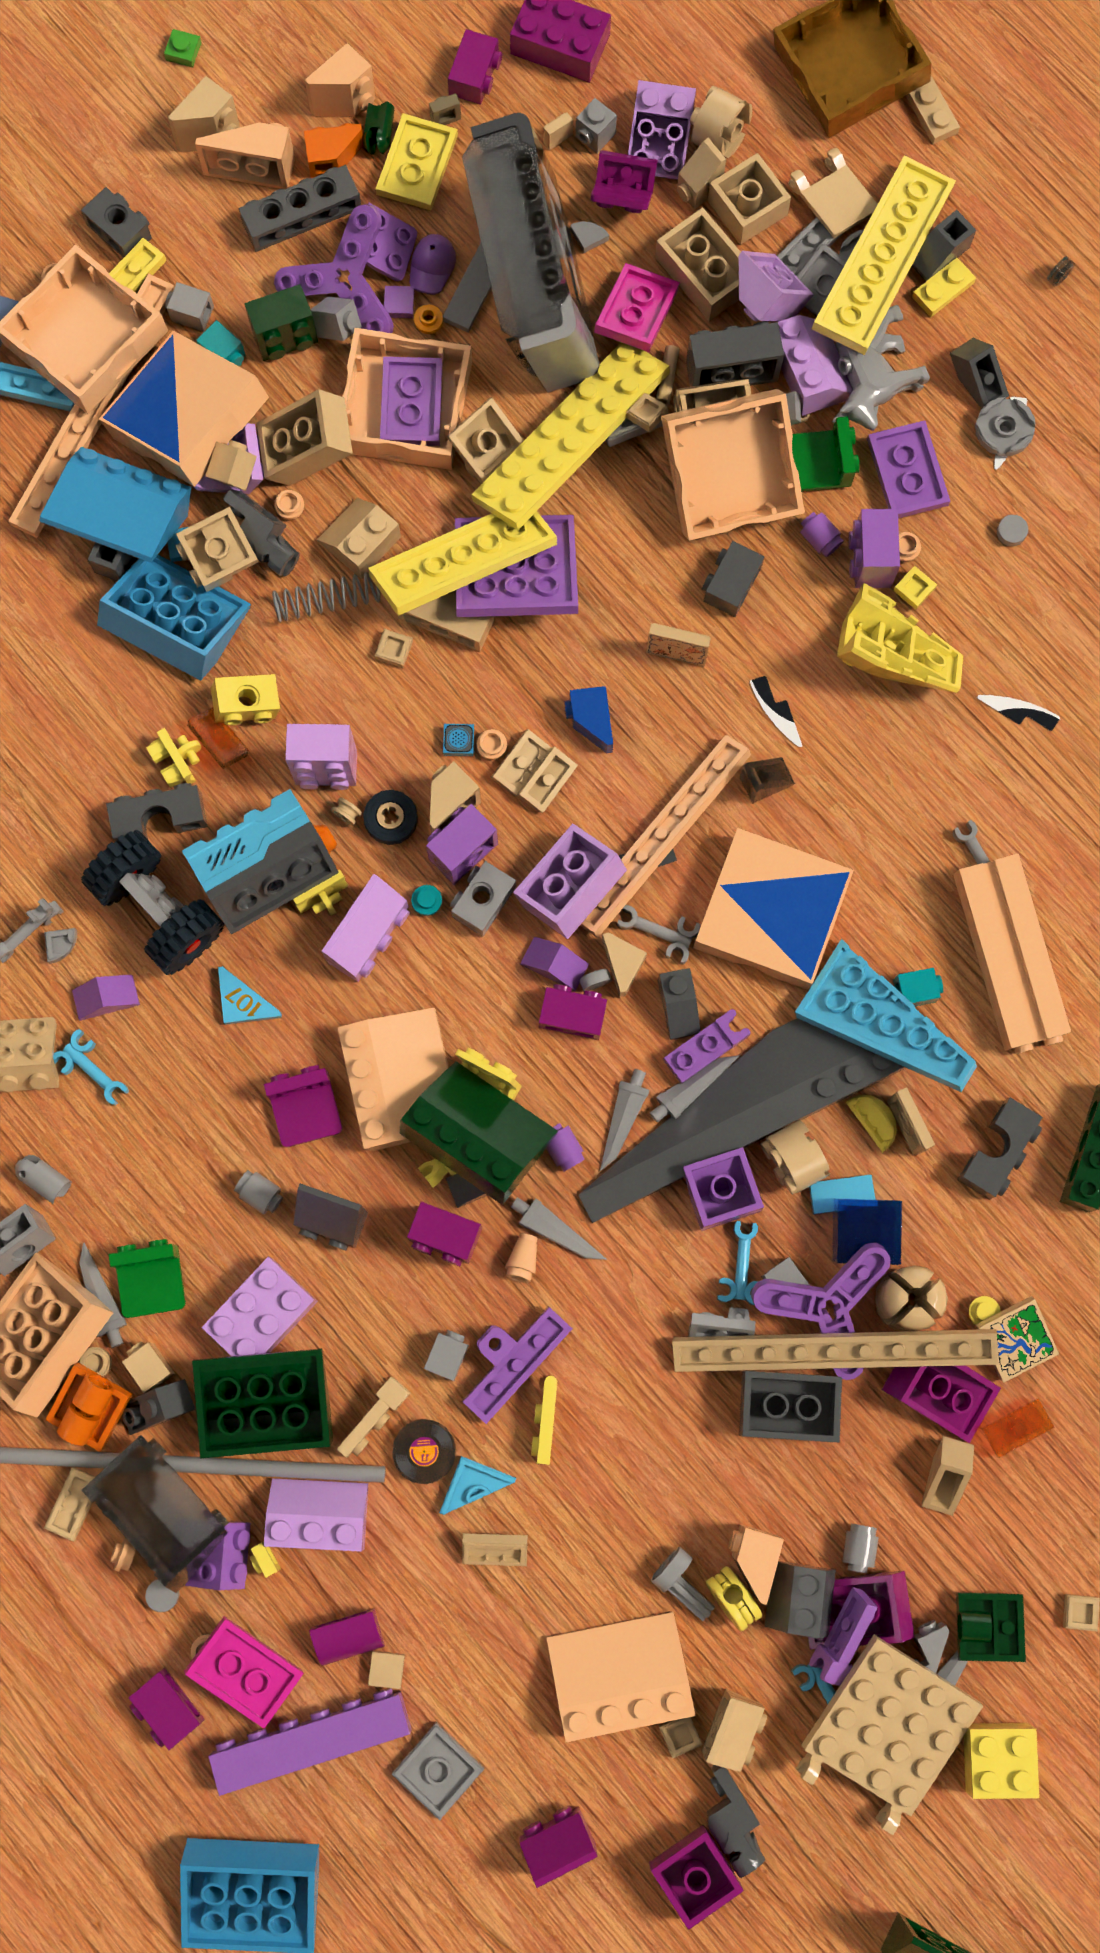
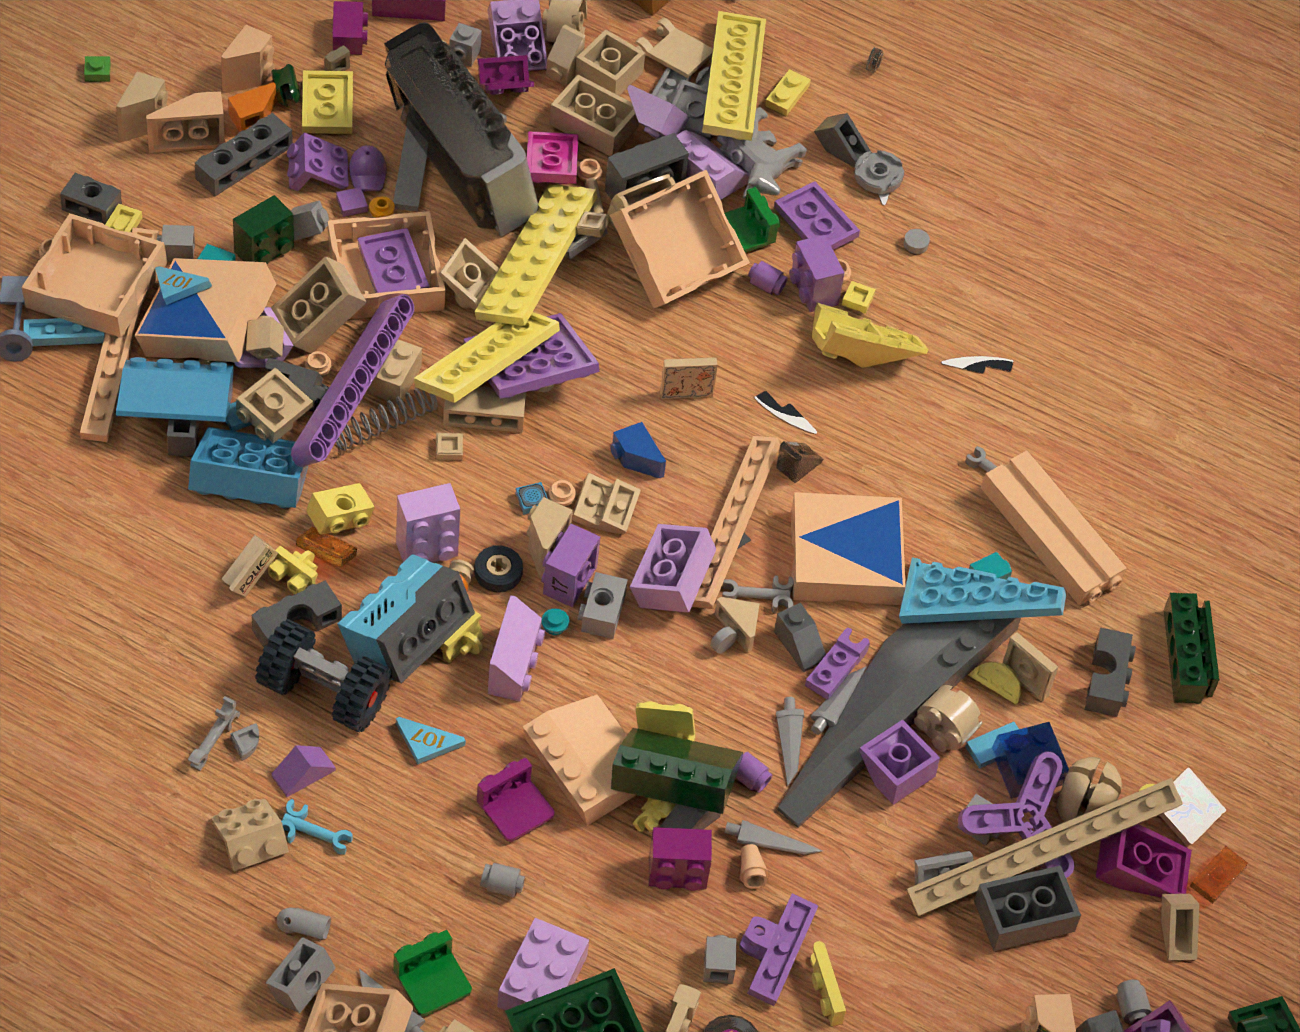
camera: 25 degrees left, 25 degrees down
(126, 741) = (249, 566): none -> tan panel
(160, 371) = (178, 284): none -> medium azure tile
(296, 547) = (352, 381): none -> medium lavender beam
(328, 1216) = (575, 867): dark grey slope -> none
(352, 257) = (305, 170): medium lavender piece -> none
(554, 962) = (683, 637): medium lavender slope -> none
(573, 1012) = (715, 669): magenta brick -> none
(675, 333) = (589, 169): none -> light nougat plate
(733, 578) = (711, 325): dark grey brick -> none
(740, 1289) = (942, 839): medium azure bar -> none
(944, 244) = (777, 60): dark grey slope -> none

